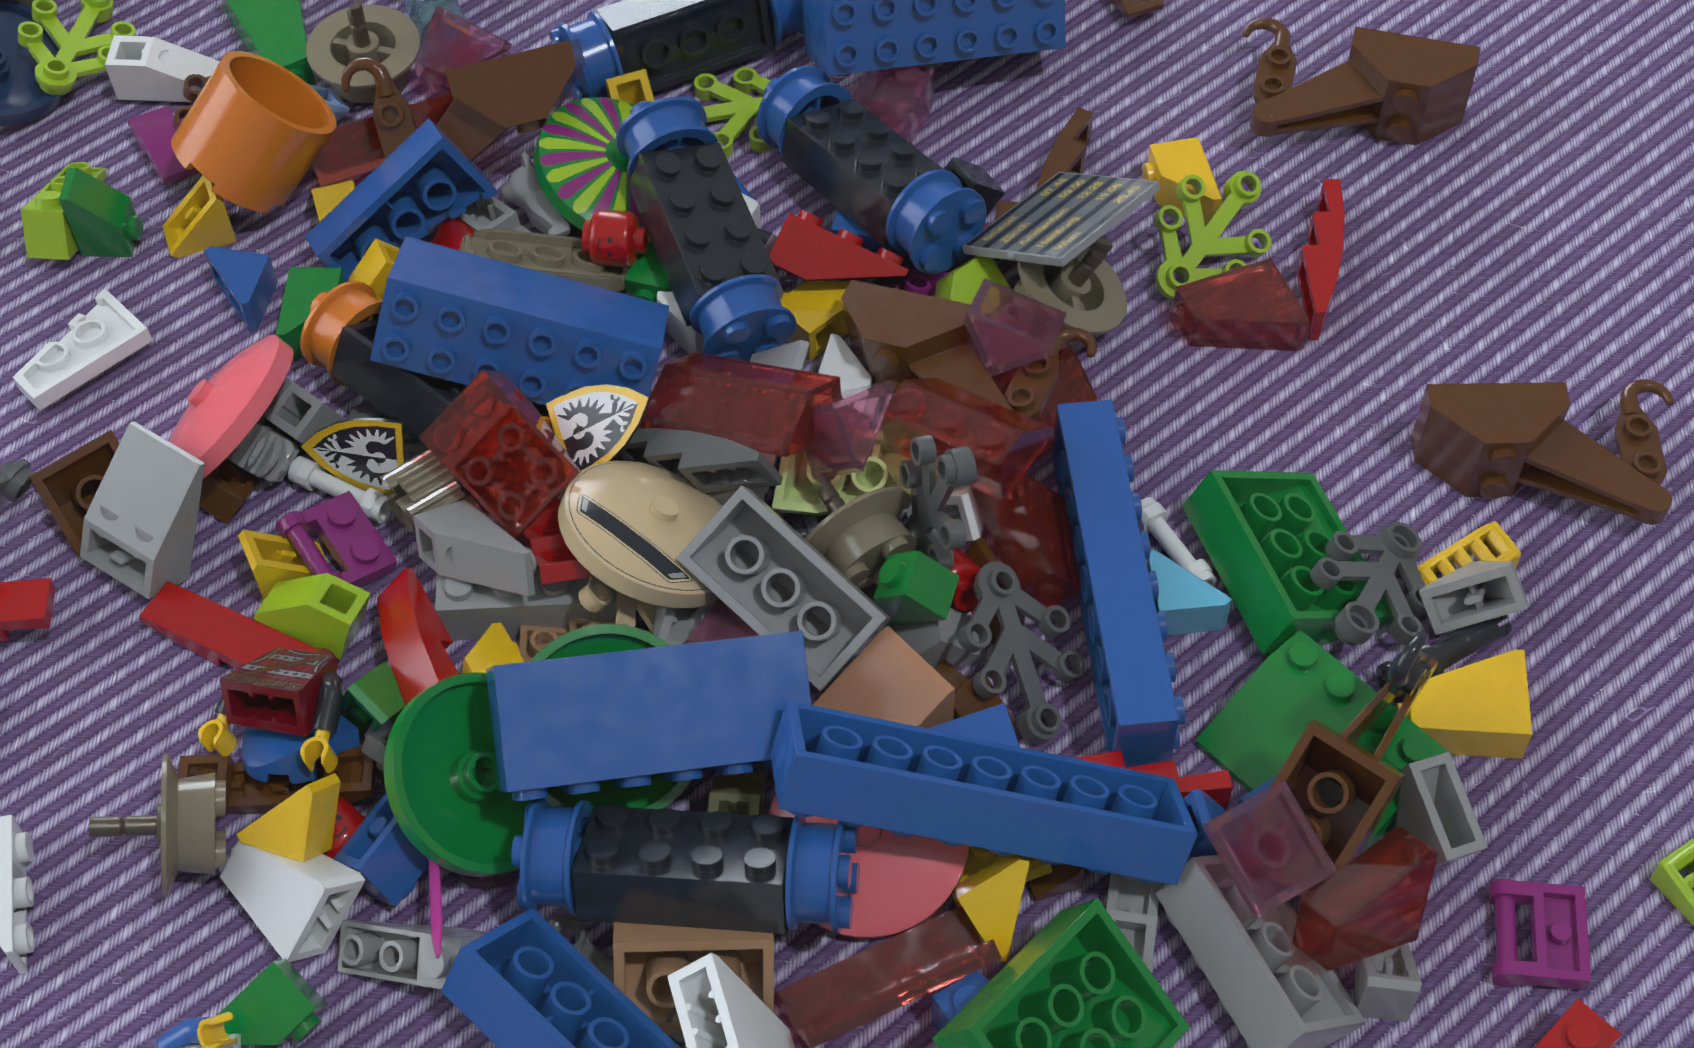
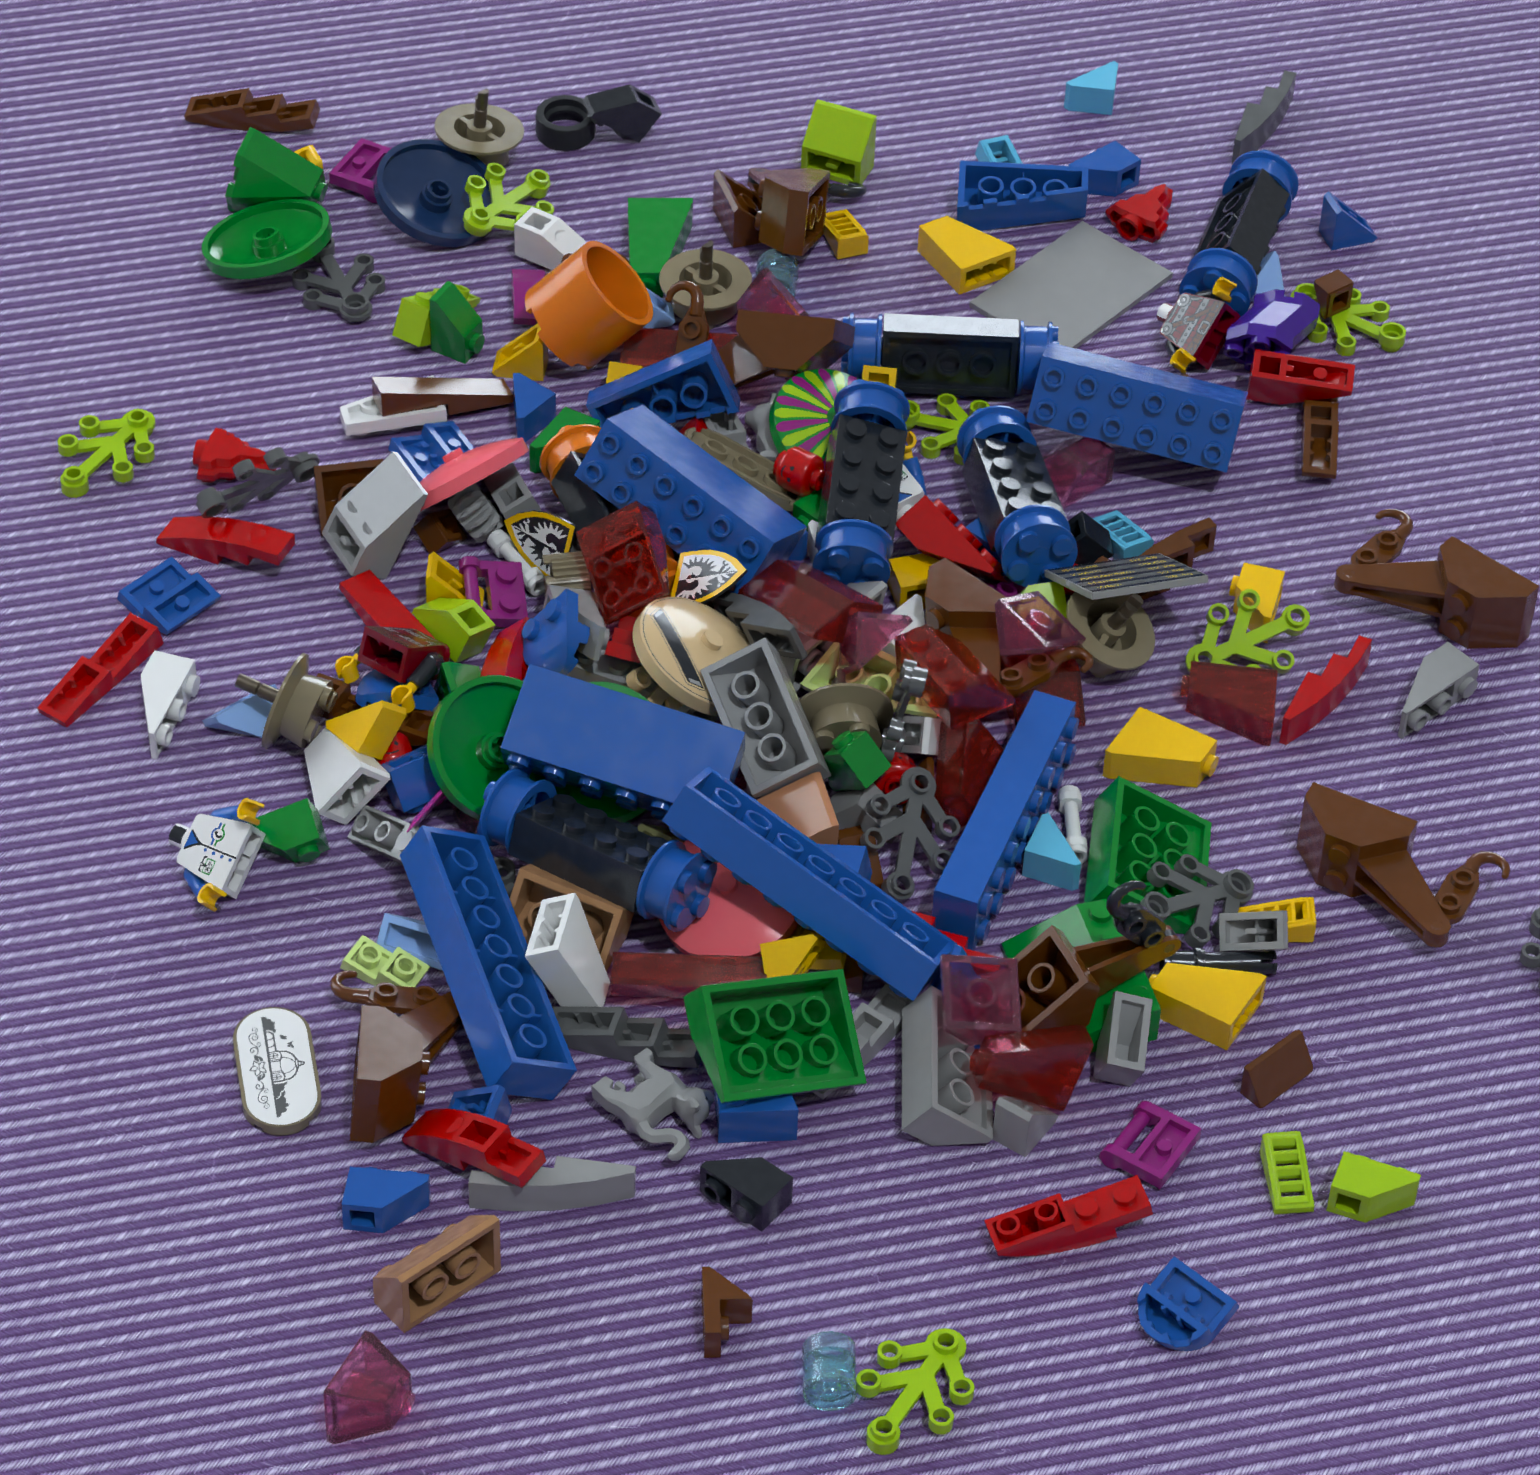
camera: 25 degrees right, 10 degrees down
(111, 858) = (243, 716): none -> light blue slope
(151, 301) = (458, 395): none -> reddish brown slope
(156, 387) = (425, 451): none -> blue slope
(464, 586) = (555, 635): none -> blue slope
(1017, 164) = (1138, 538): none -> medium azure slope
(1209, 410) = (1160, 752): none -> yellow slope
(1426, 203) = (1440, 682): none -> light grey slope
(1601, 764) = (1276, 1070): none -> reddish brown slope

